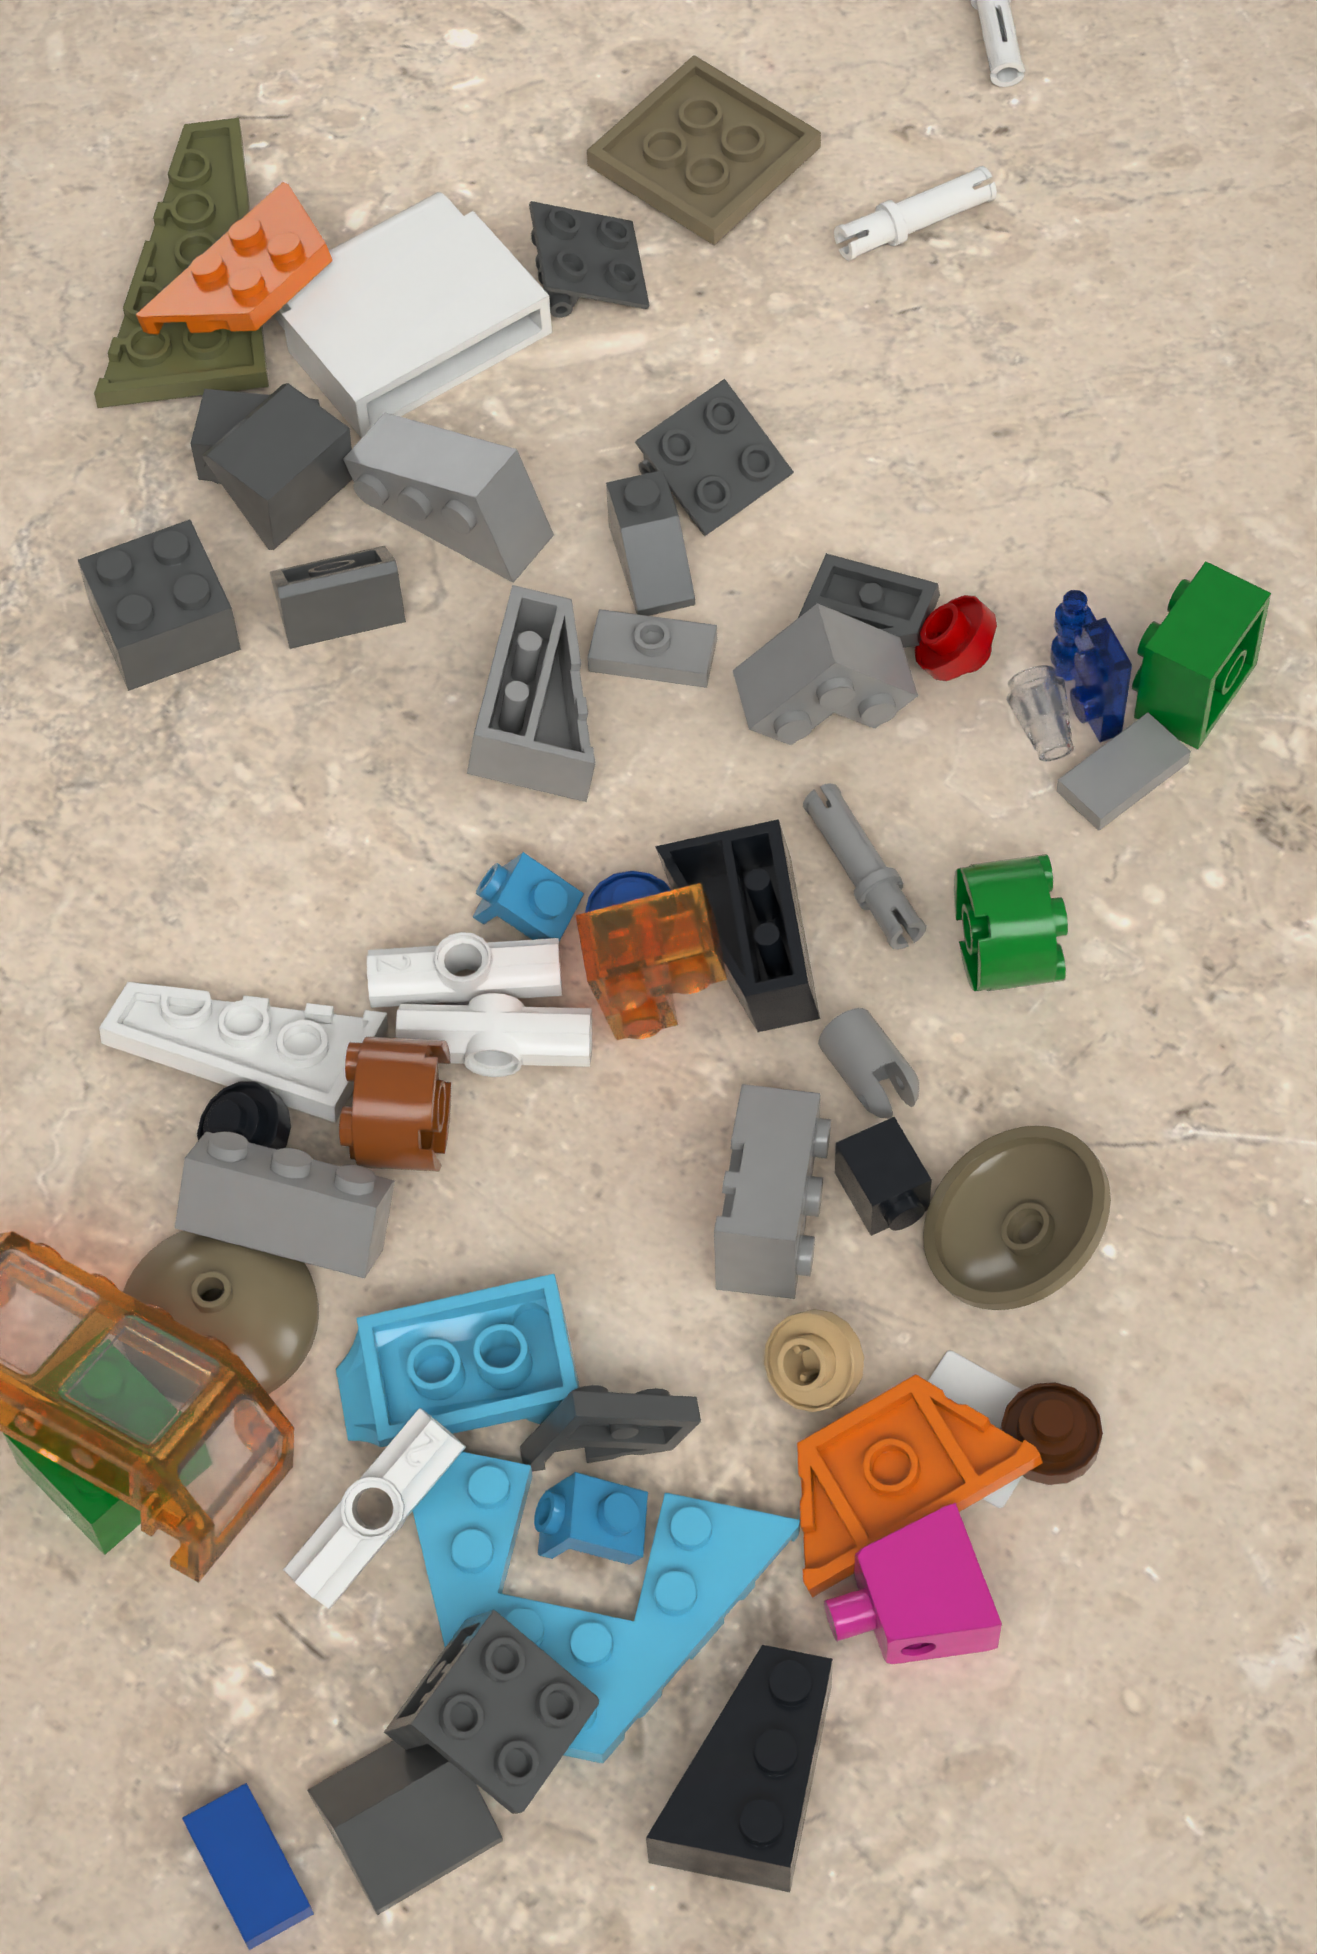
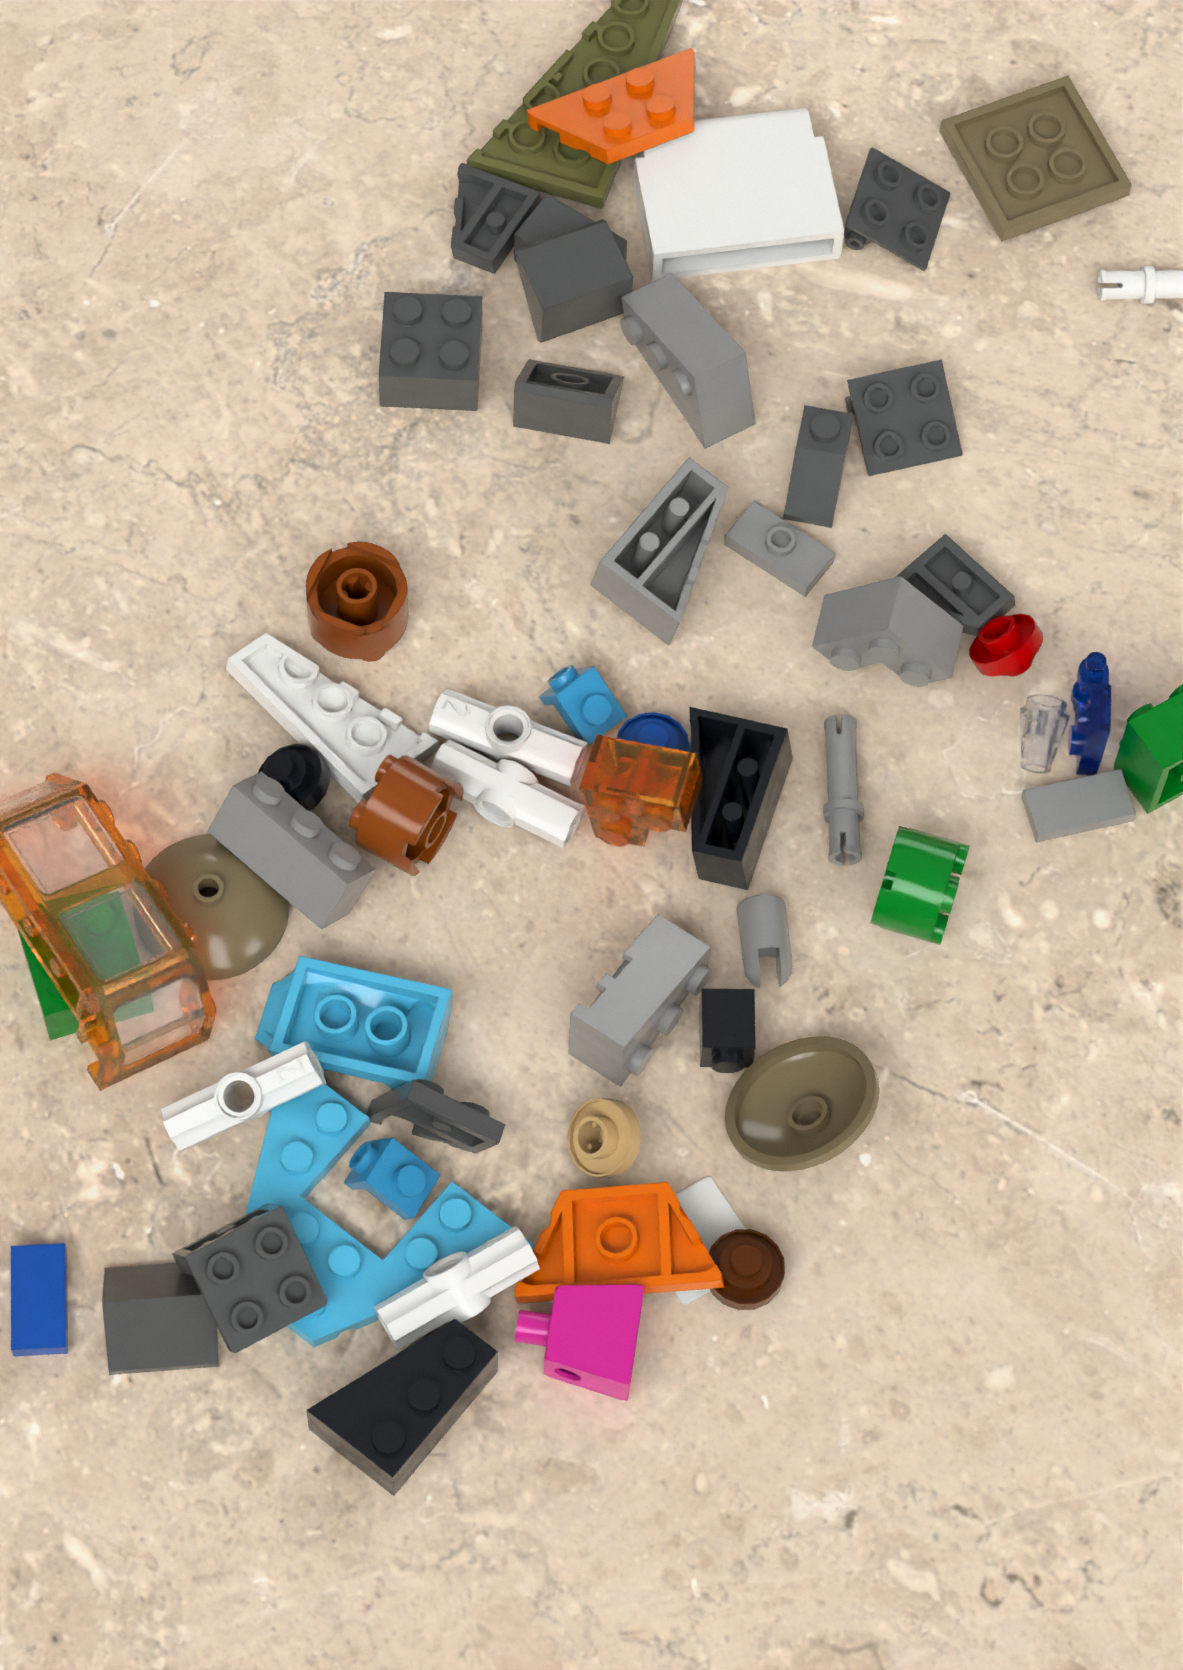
camera: 20 degrees right, 5 degrees up
(149, 443) = (488, 216): none -> dark grey wing
(217, 900) = (357, 601): none -> dark orange brick
(740, 1610) = (456, 1287): none -> white piece

